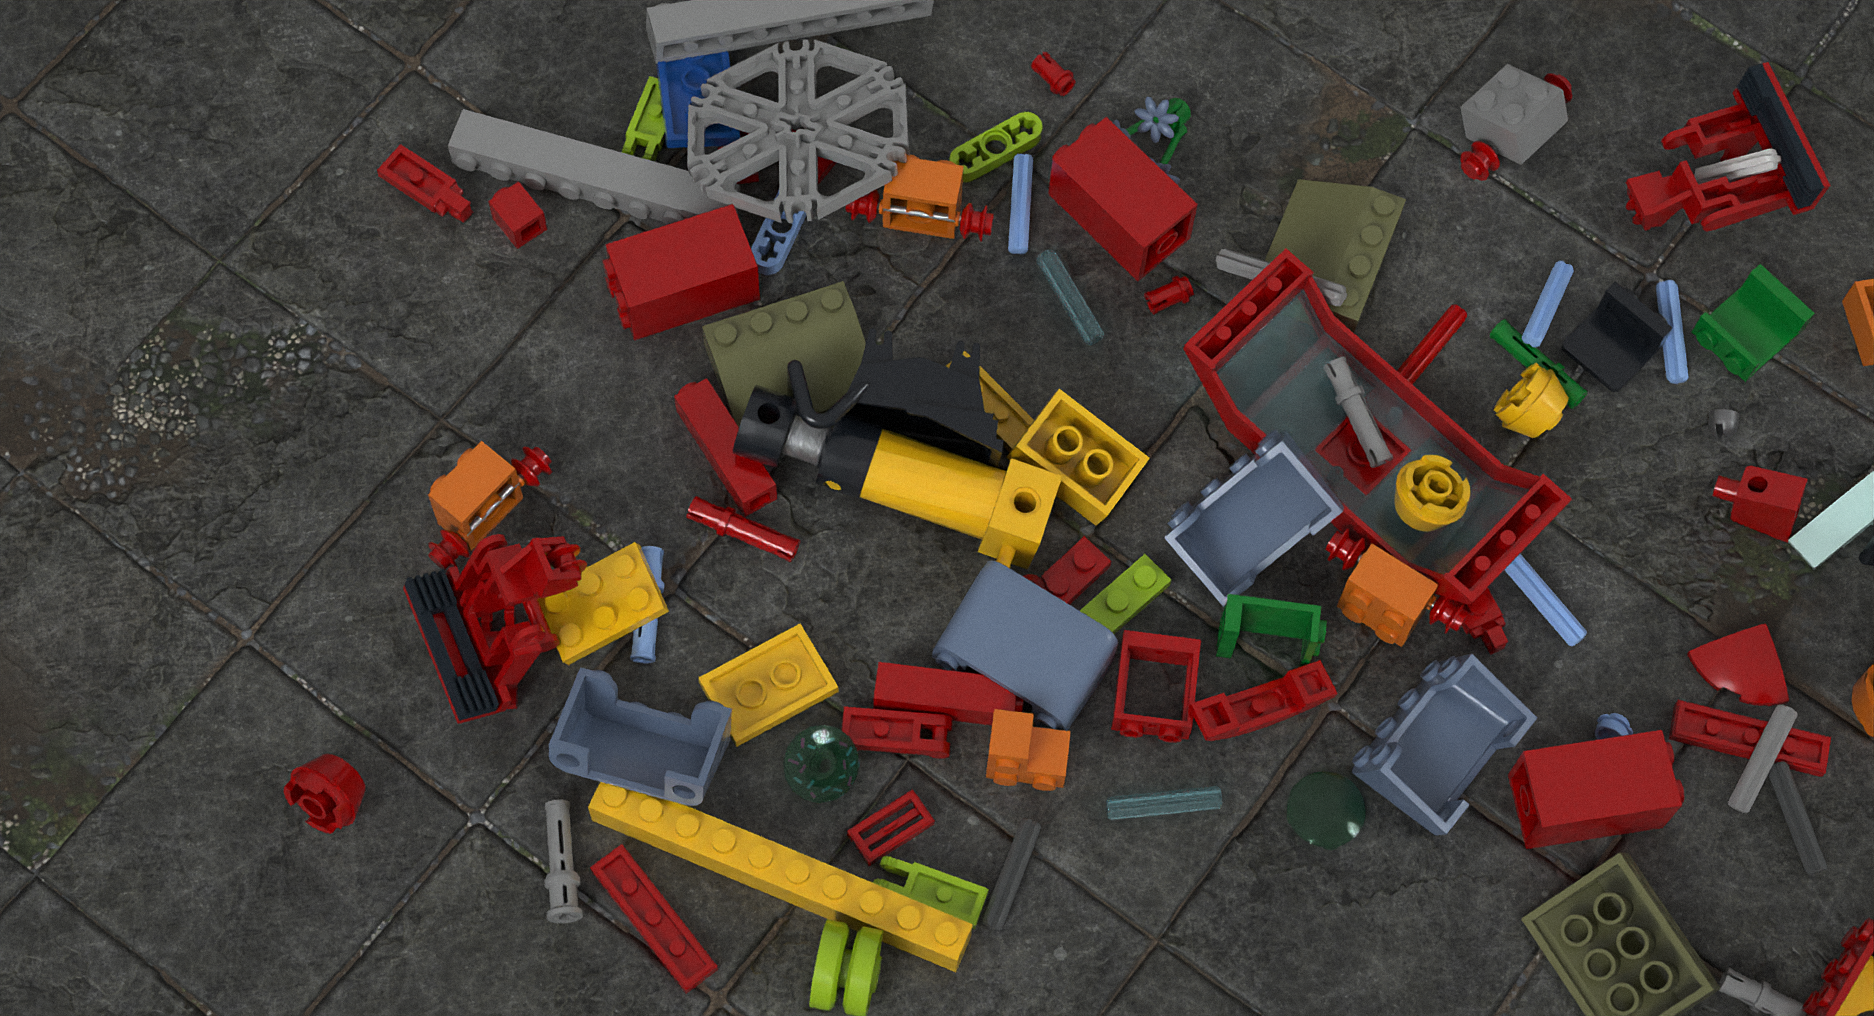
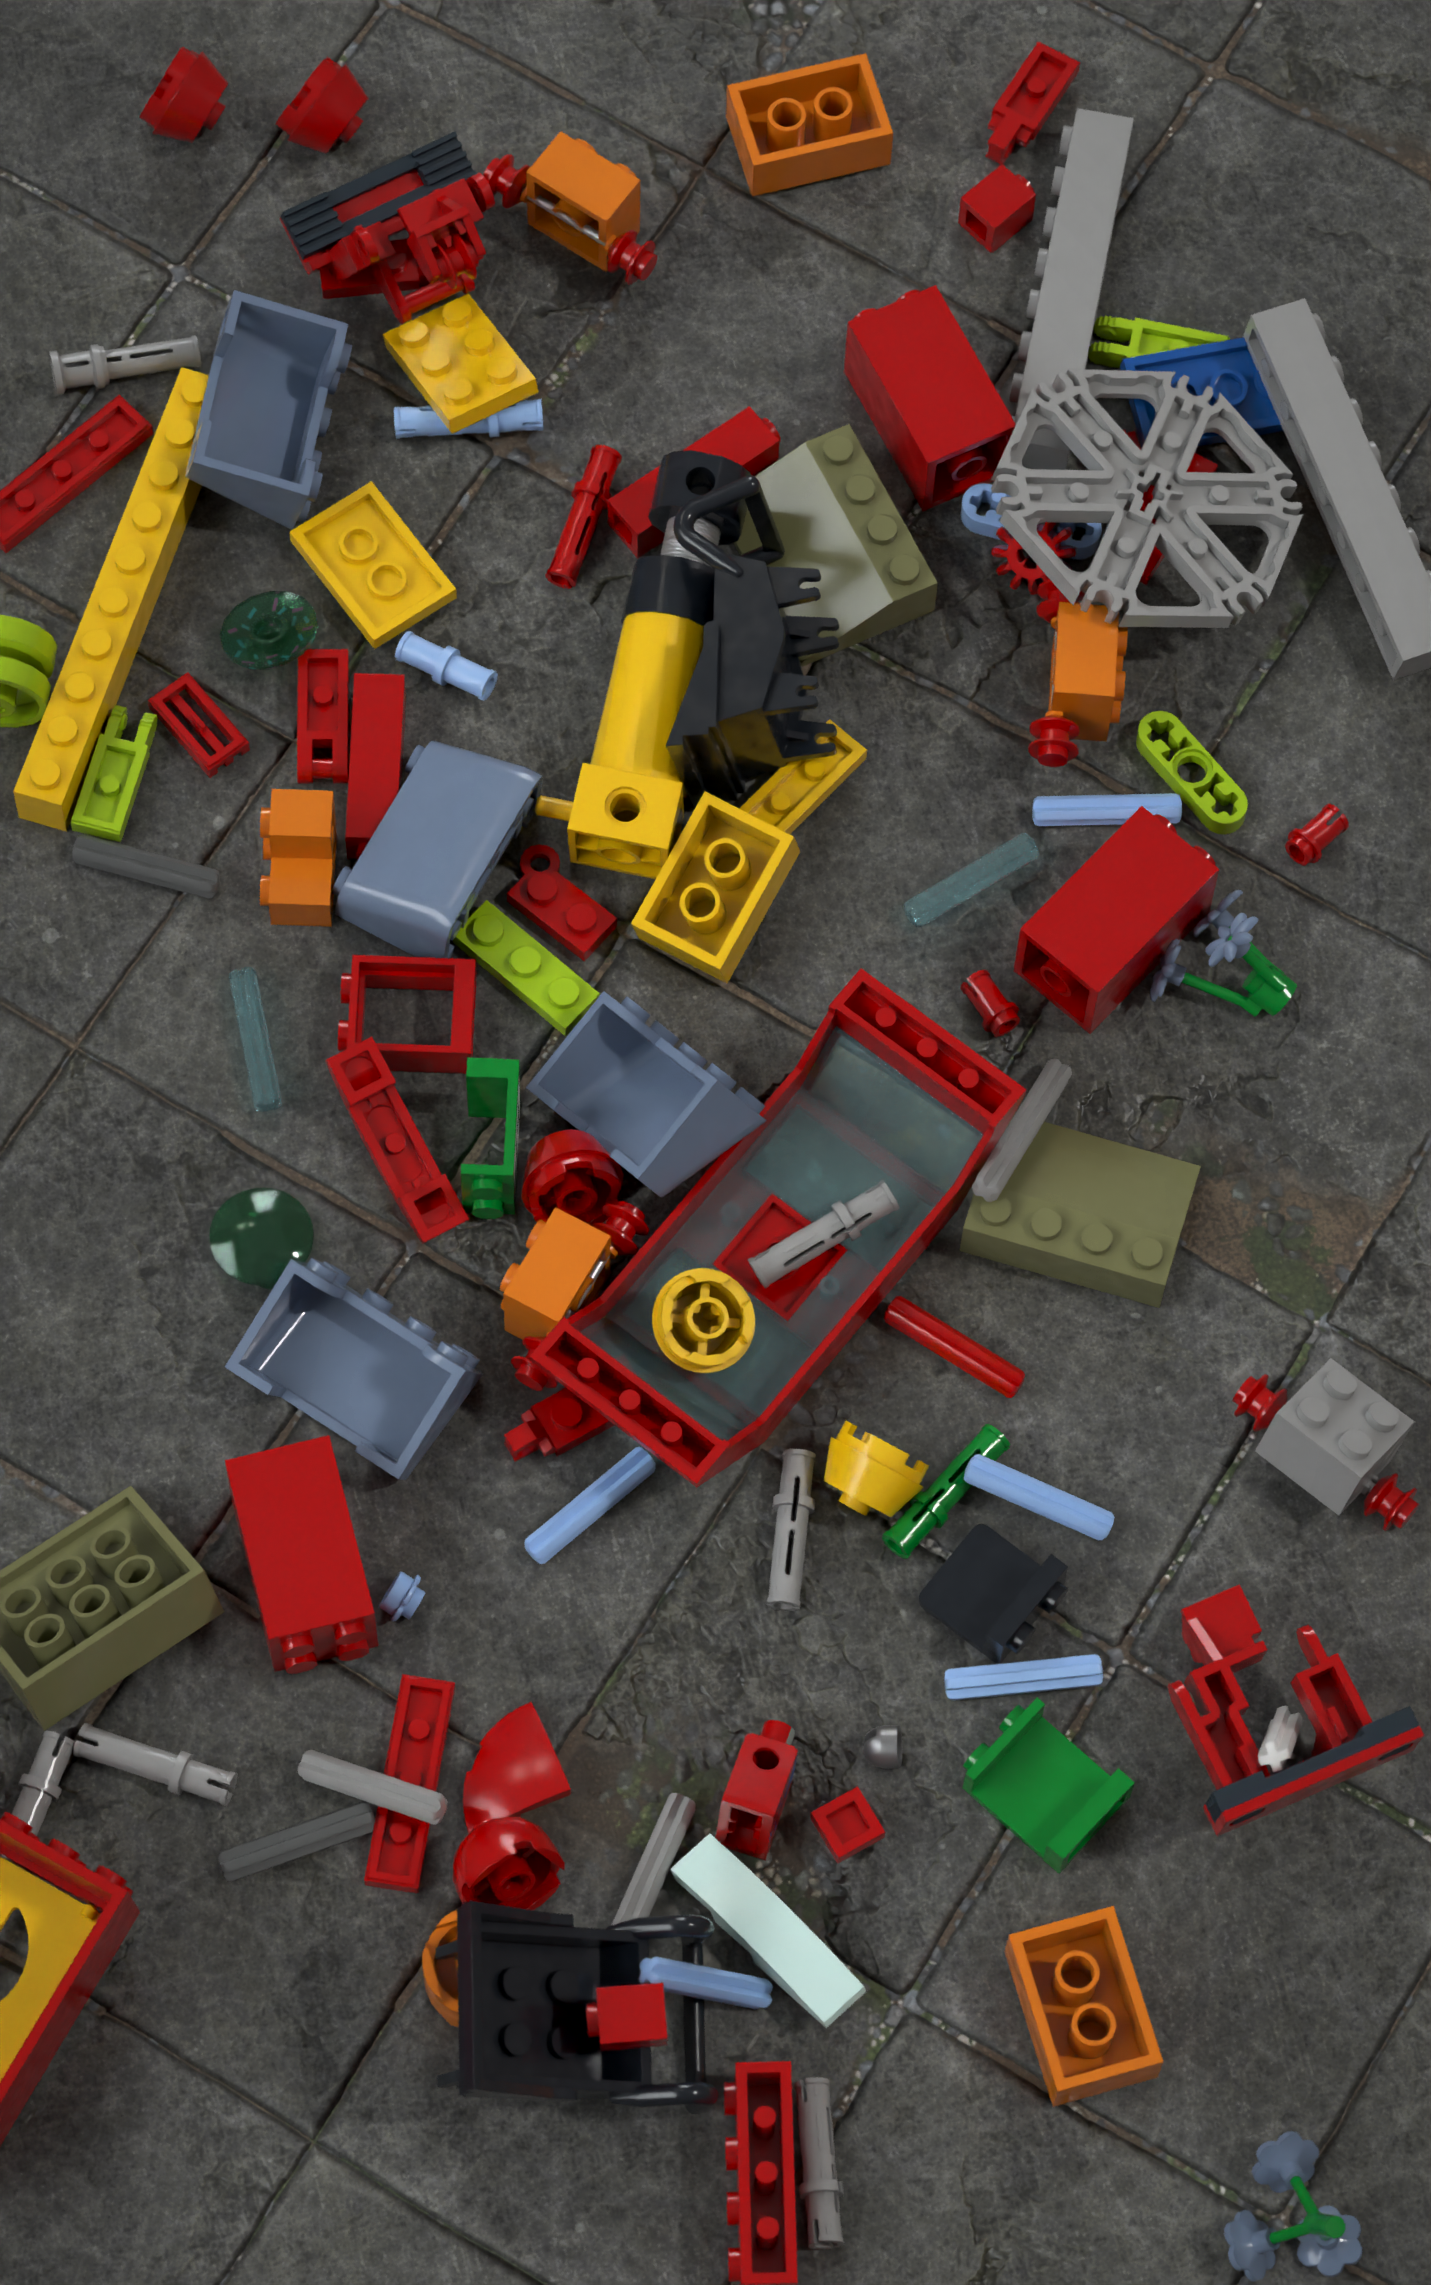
camera: 85 degrees right, 0 degrees up
(355, 684) = (325, 108): none -> red cone
(428, 332) = (809, 124): none -> orange brick
(818, 233) = (1021, 564): none -> red gear
(861, 638) = (446, 665): none -> light blue pin
(1301, 577) = (571, 1174): none -> red cone
(1558, 464) = (798, 1471): none -> light grey pin
(1747, 897) = (176, 1771): none -> light grey pin
(1787, 447) = (847, 1824): none -> red tile
(1812, 581) = (656, 1858): none -> light grey axle
(1819, 674) = (507, 1864): none -> red cylinder

